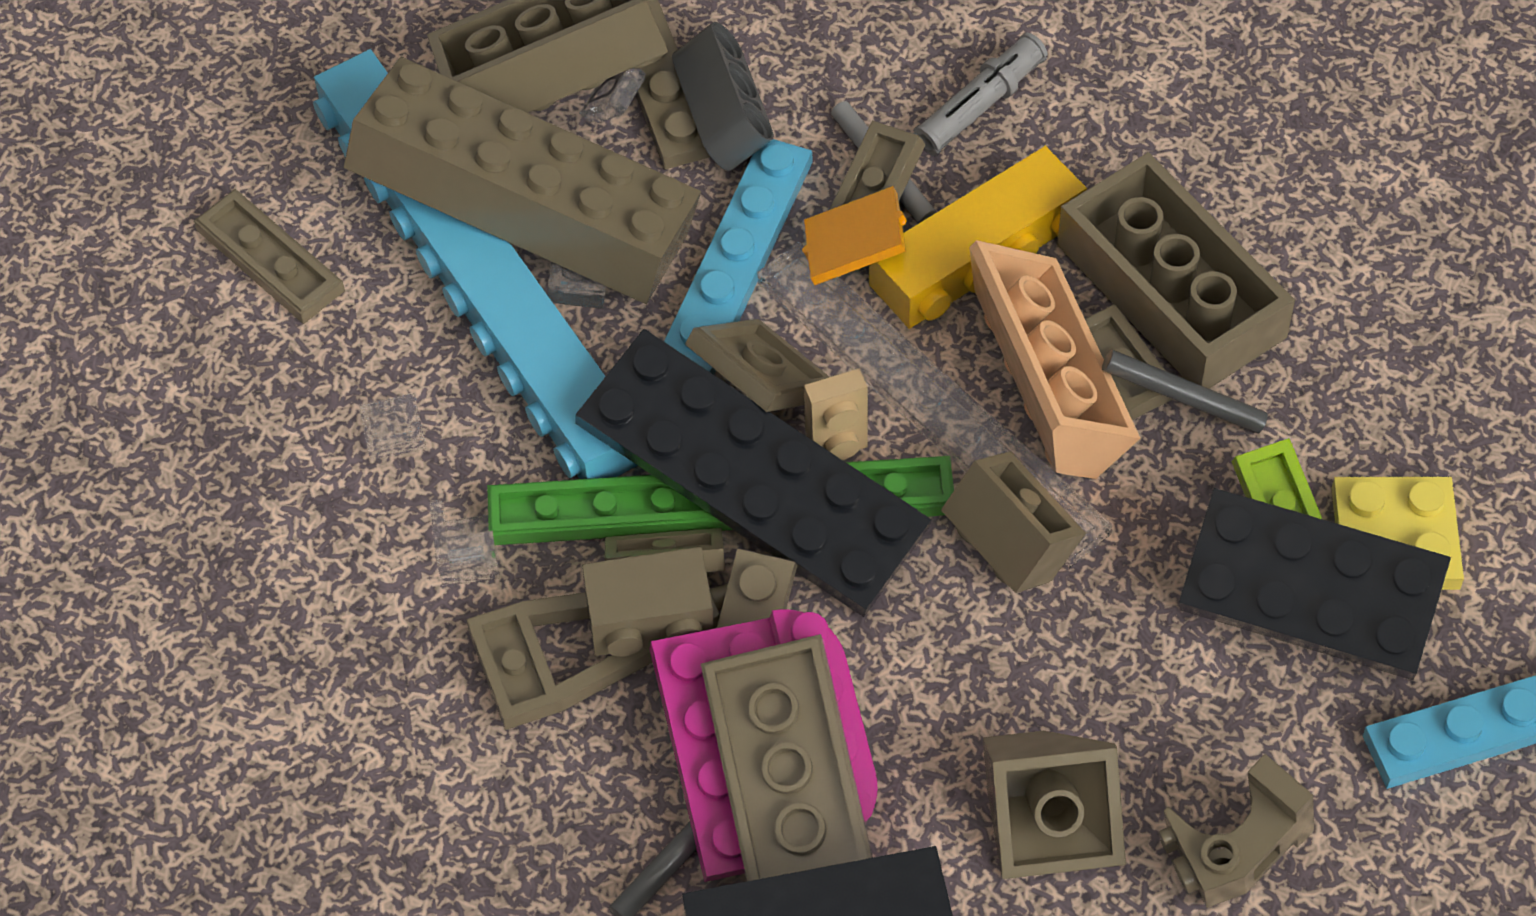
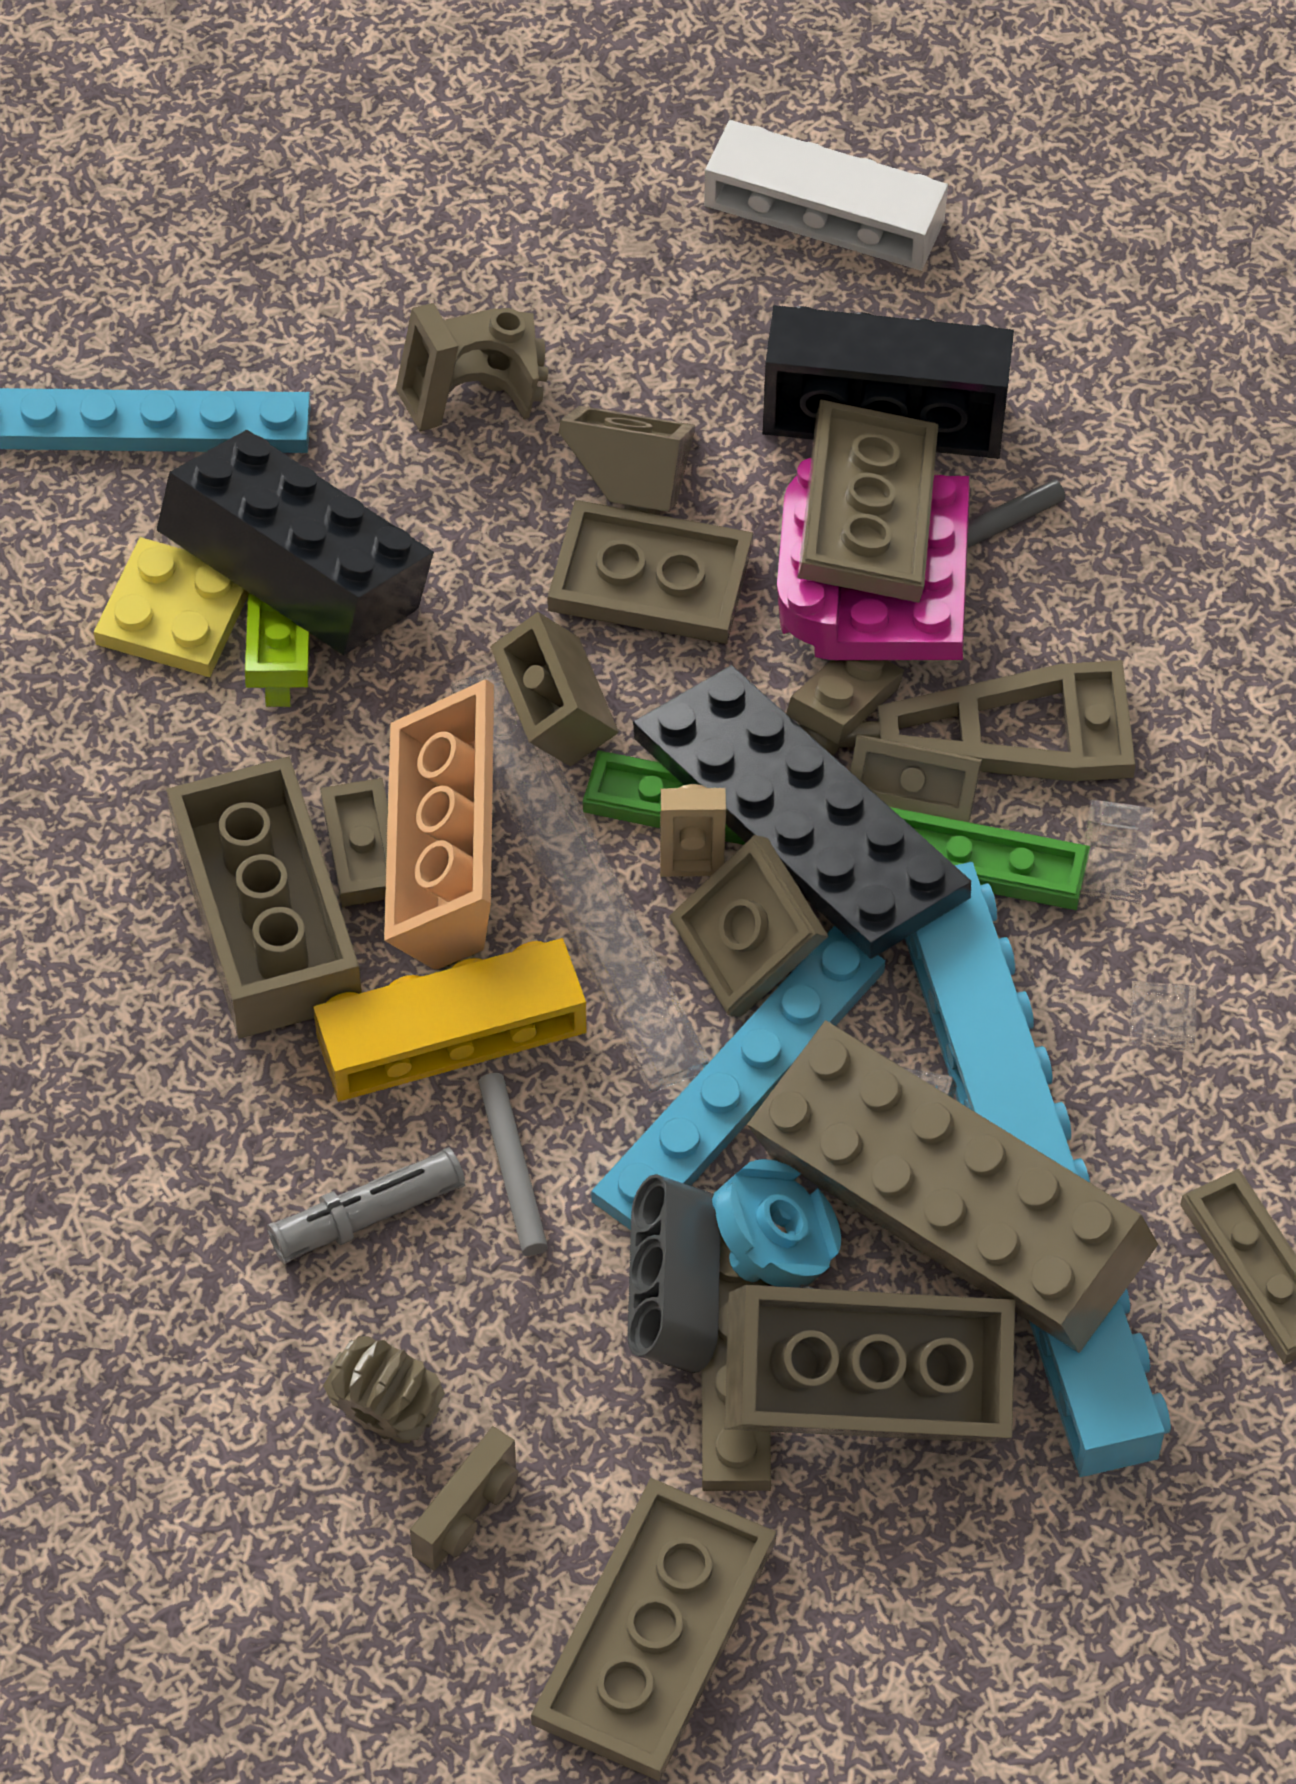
camera: 165 degrees left, 0 degrees up
(646, 600) = (950, 701): dark tan brick -> none
(669, 121) = (759, 1250): none -> medium azure plate
(854, 235) = (591, 1036): light orange piece -> none
(882, 161) = (536, 1113): dark tan plate -> none
(977, 685) = (650, 571): none -> dark tan plate
(1184, 391) = (323, 774): dark grey bar -> none

